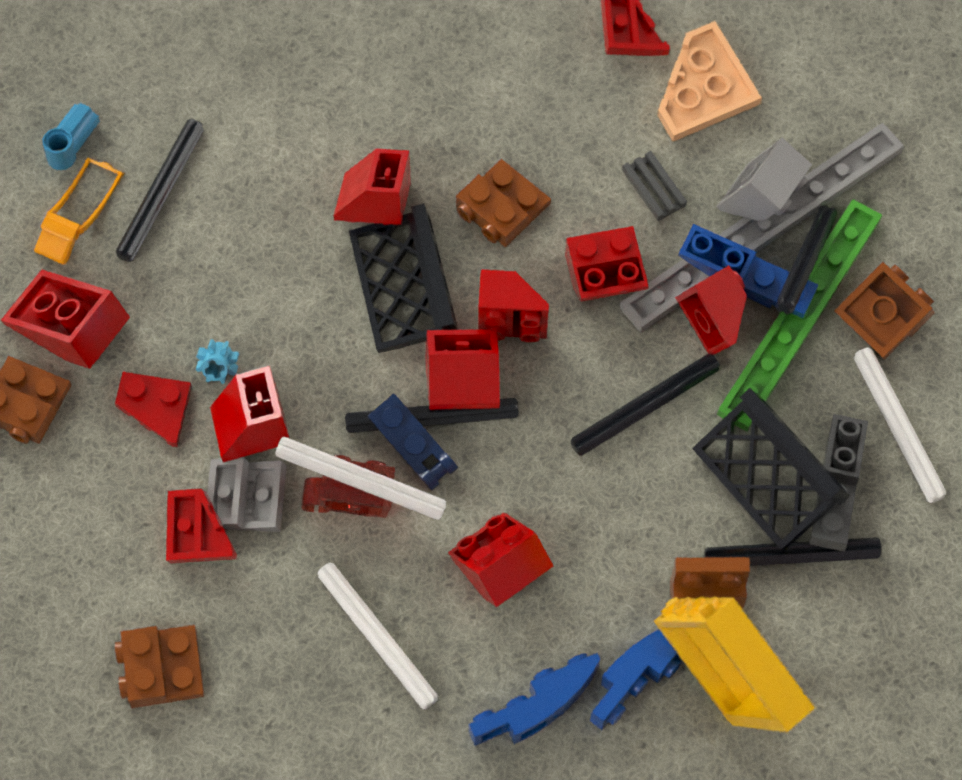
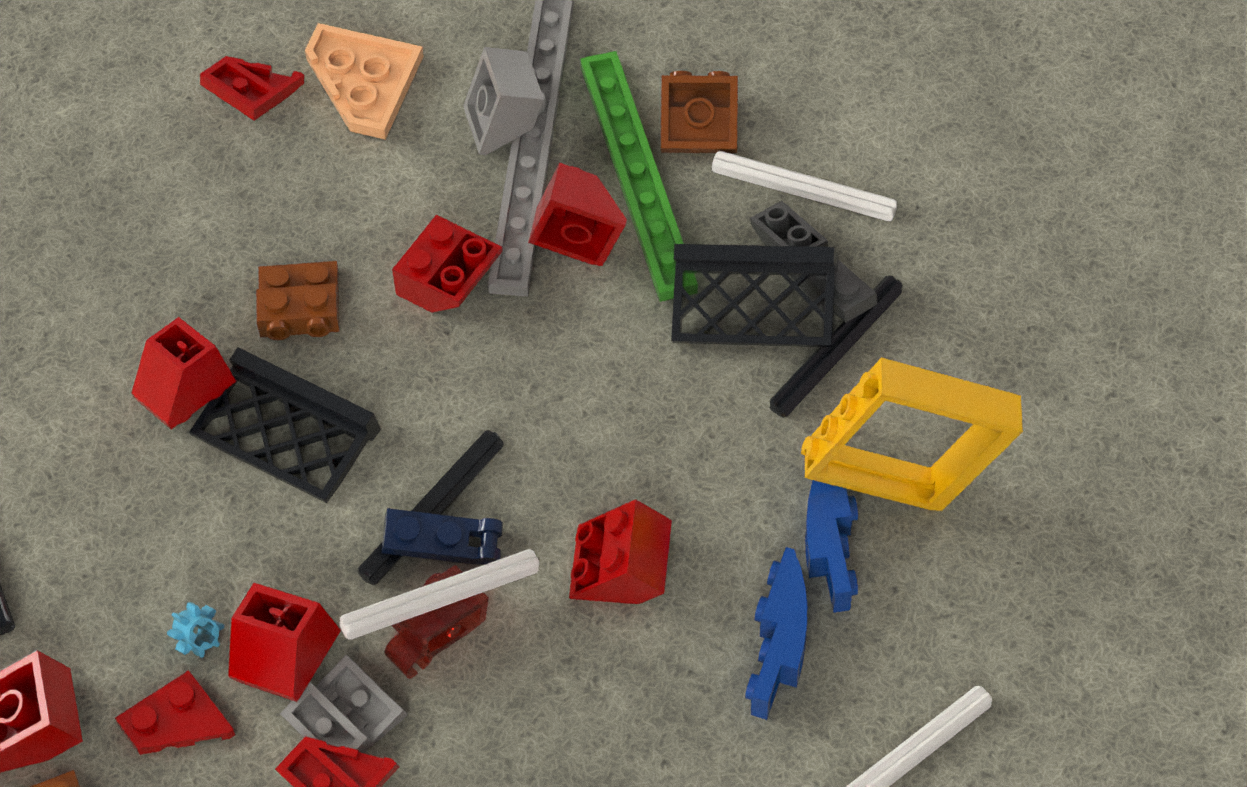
camera: 45 degrees left, 10 degrees down
(377, 636) = (588, 712): white axle -> none
(462, 369) = (420, 442): red slope -> none
(511, 307) = (406, 360): red slope -> none
(640, 164) = (409, 176): dark grey tile -> none
(644, 404) = (594, 344): black axle -> none
(710, 578) = (803, 411): dark orange plate -> none
(761, 279) = (526, 178): blue slope -> none
(806, 260) = (603, 123): black axle -> none

